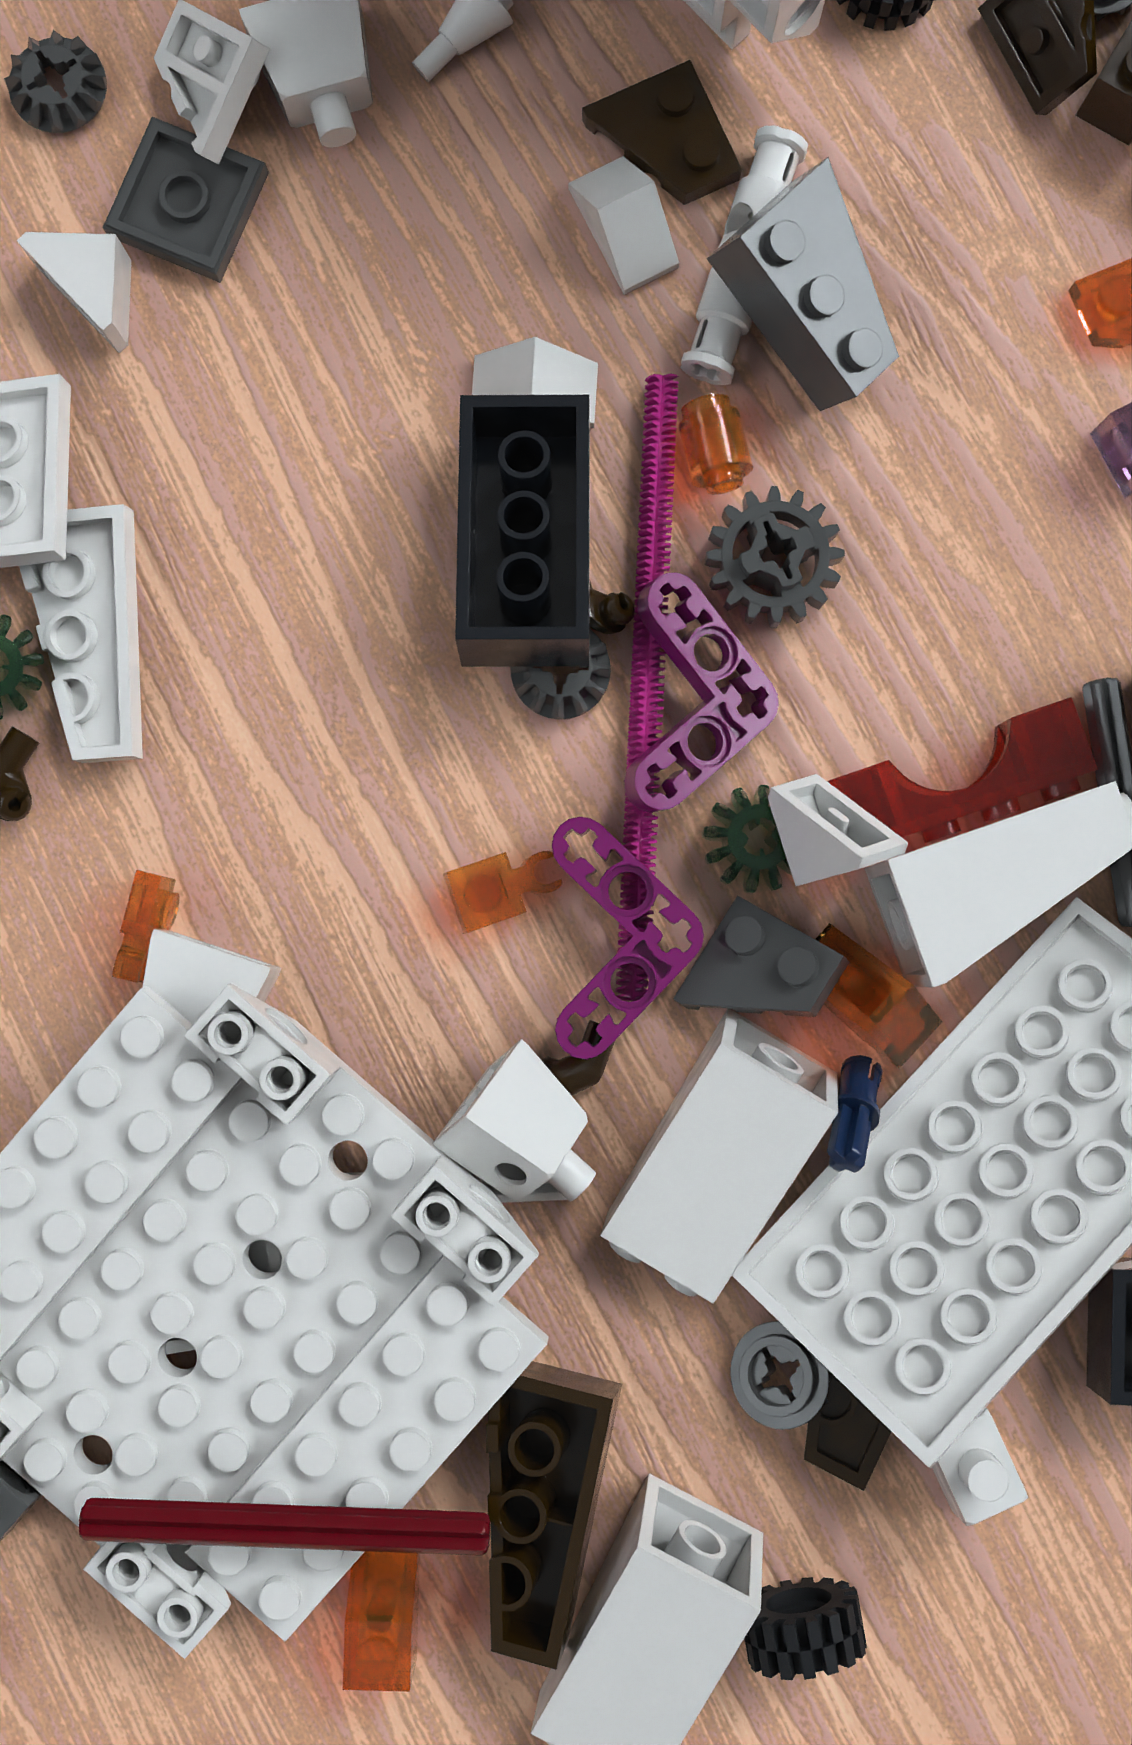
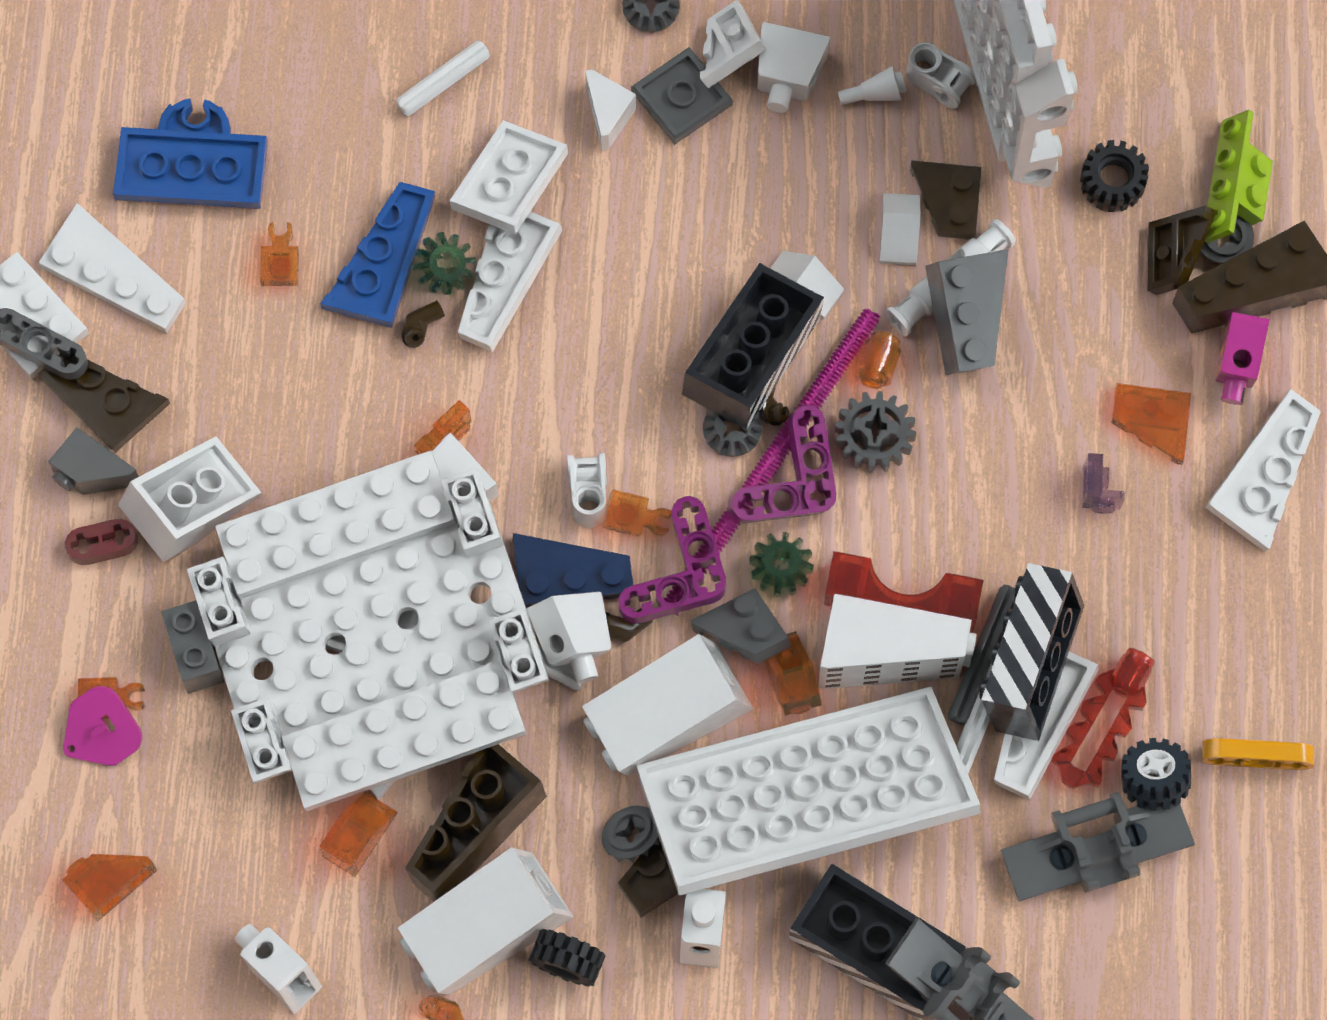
camera: 30 degrees right, 15 degrees down
(284, 1526) = (345, 741): dark red axle -> none
(399, 876) = (588, 483): none -> white piece
(452, 1030) = (561, 568): none -> dark blue wing
(827, 831) = (815, 571): white slope -> none
(856, 1114) = (748, 721): dark blue axle -> none

